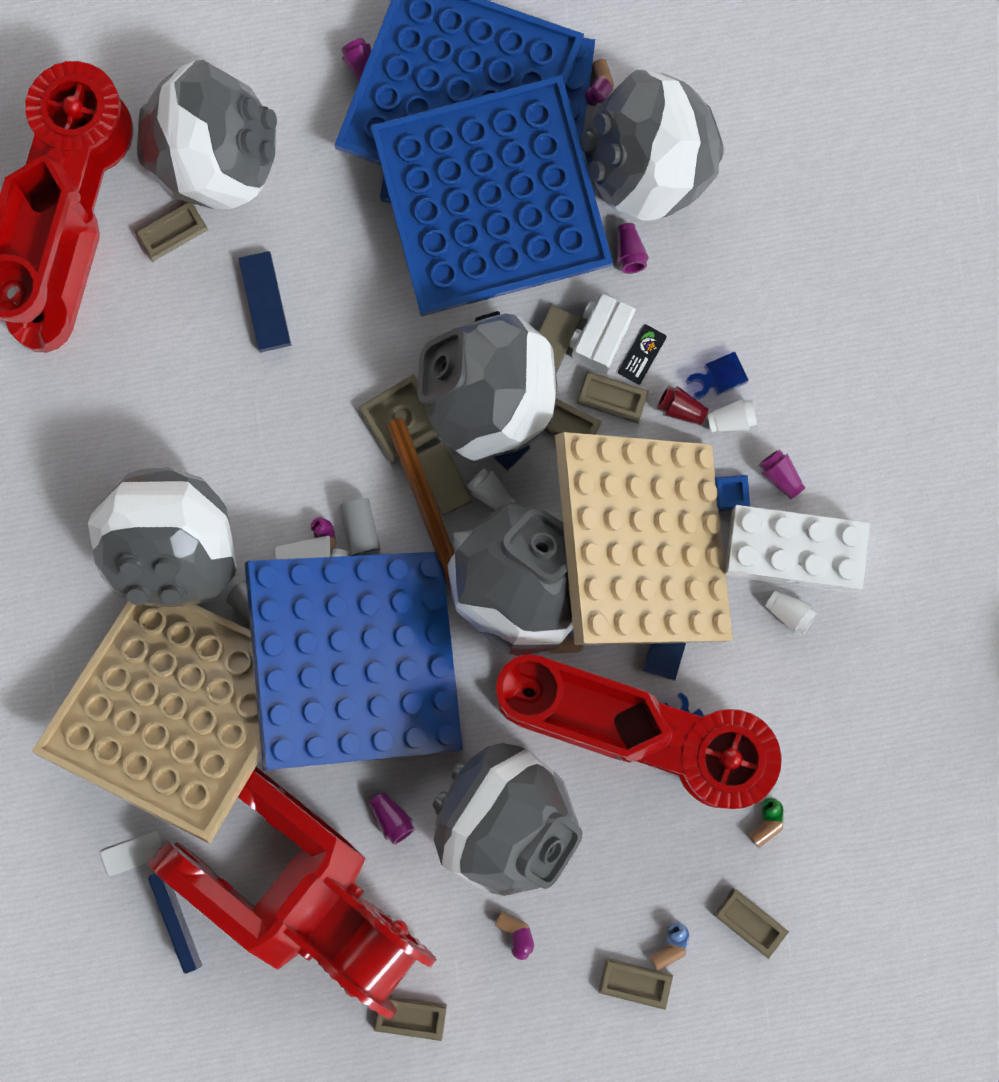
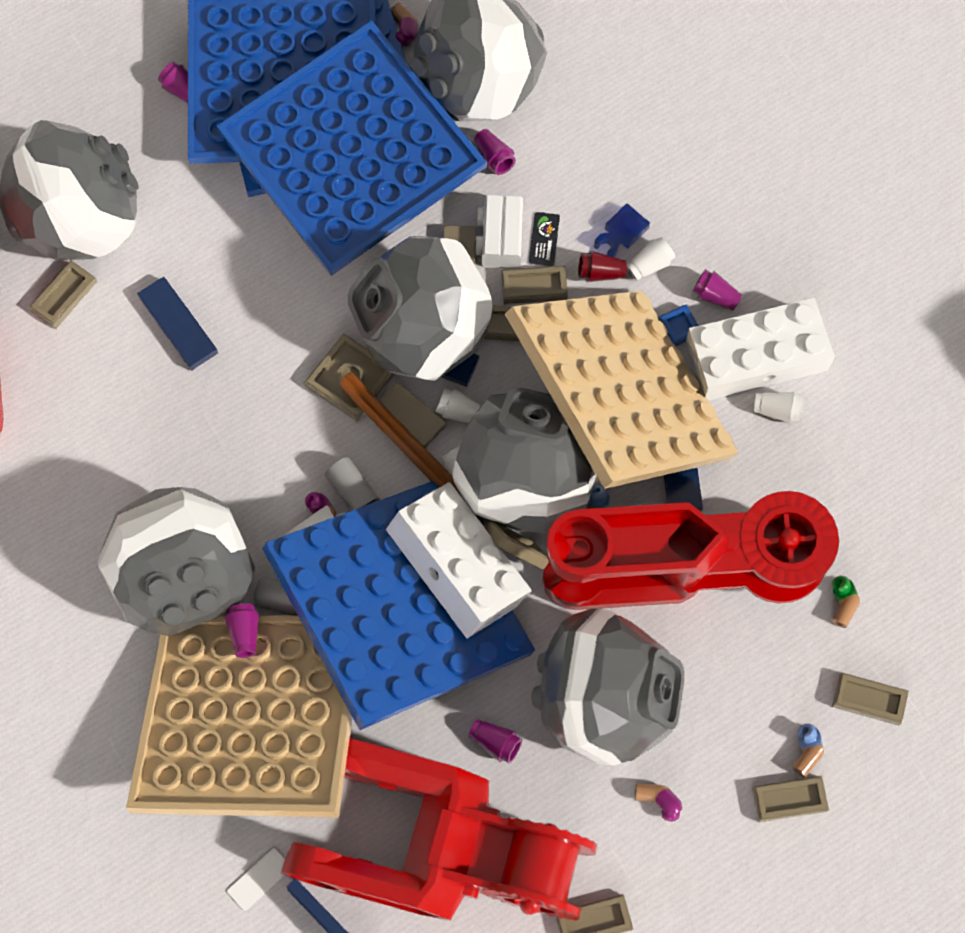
camera: 25 degrees left, 10 degrees down
(201, 627) = (243, 628): none -> magenta cone
(422, 642) = (458, 559): none -> white brick
(481, 648) = (517, 544): none -> dark tan tile

